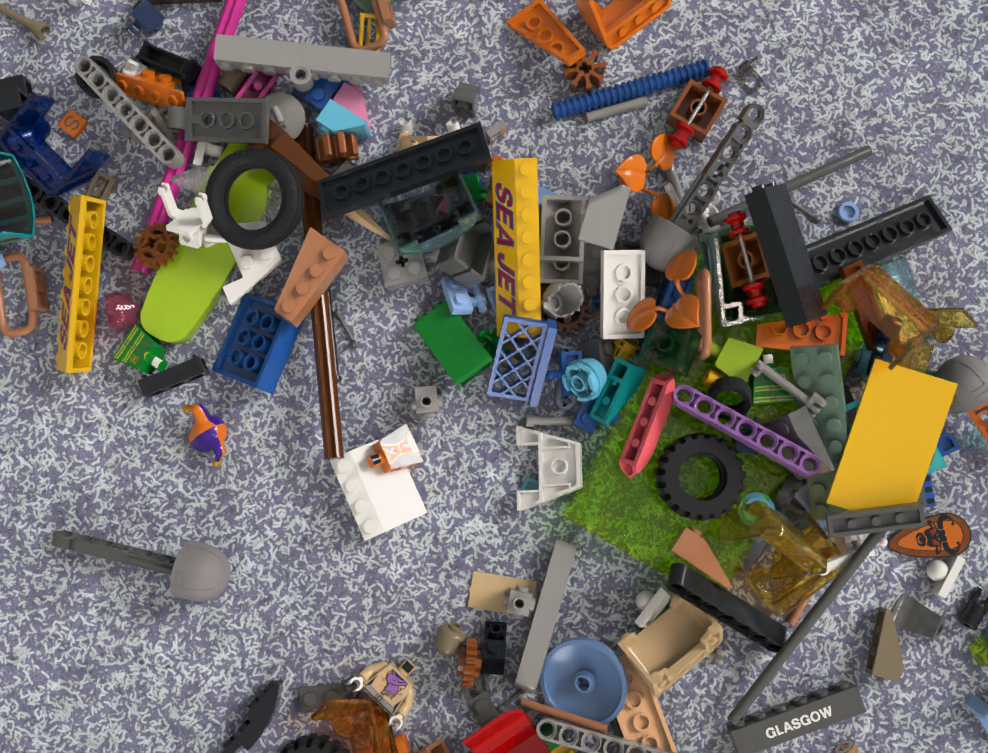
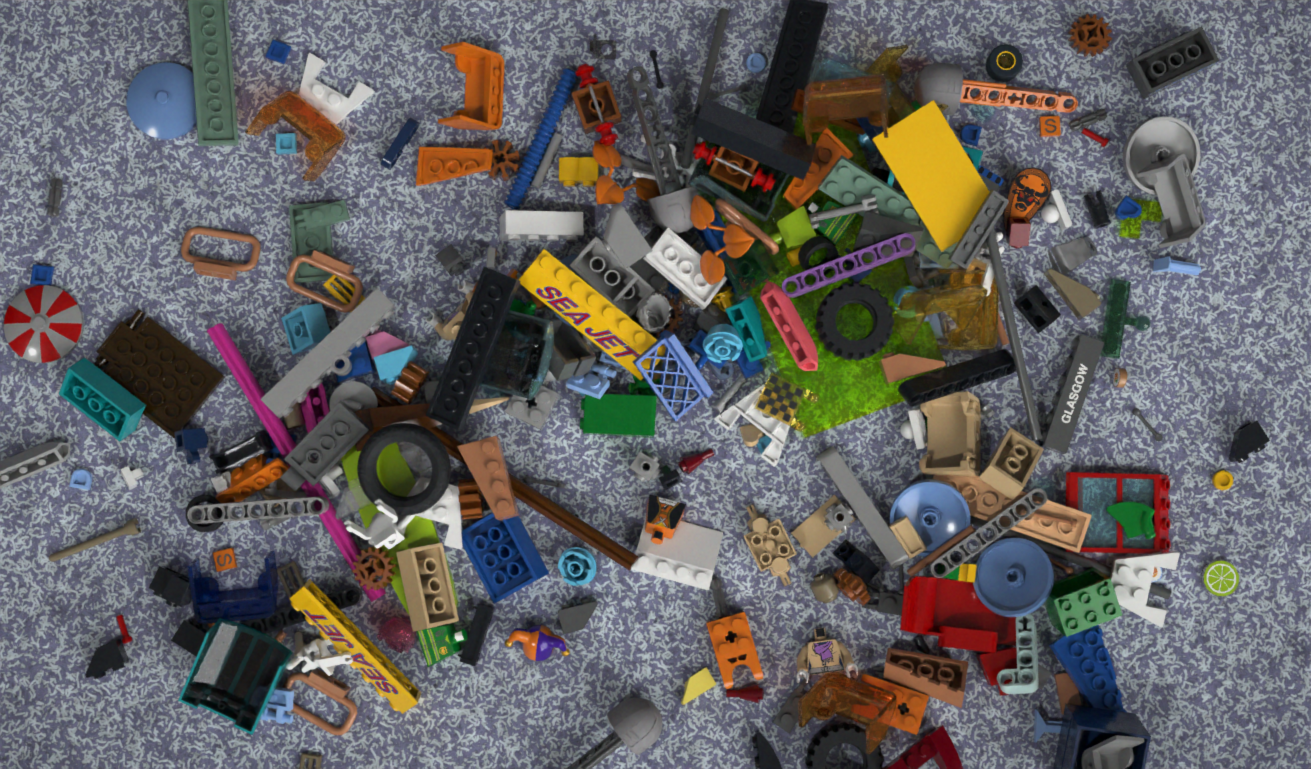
camera: 55 degrees left, 0 degrees up
(48, 258) = (316, 655): none -> white piece
(176, 302) = (427, 586): none -> tan slope
(253, 447) = (576, 617): none -> dark grey slope
(274, 281) = (470, 499): none -> dark orange gear
(279, 597) = (697, 684): none -> light yellow slope
(297, 412) = (577, 566): none -> medium azure cone
(309, 650) = (750, 693): none -> dark red cone
(316, 27) = (306, 327): none -> medium azure slope
(330, 606) = (736, 652): none -> orange brick
(368, 554) = (719, 598): none -> flat silver axle
(435, 429) = (669, 478): none -> black tile
(446, 561) = (769, 544): none -> tan piece
(463, 436) = (691, 462): none -> dark red cone
(528, 468) = (750, 435): none -> tan tile
(552, 676) = (908, 536): none -> tan tile
(558, 148) = (541, 225): none -> white wedge
(580, 470) = (782, 400): none -> clear yellow flag
(628, 139) = (578, 170): none -> yellow brick
(691, 717) = (1011, 463): none -> tan brick
(760, 148) = (653, 54): none -> black hinge
(844, 627) = (1037, 309): none -> black brick
(894, 704) = (1116, 318): none -> clear green plate
(897, 555) = (1018, 231): none -> brick

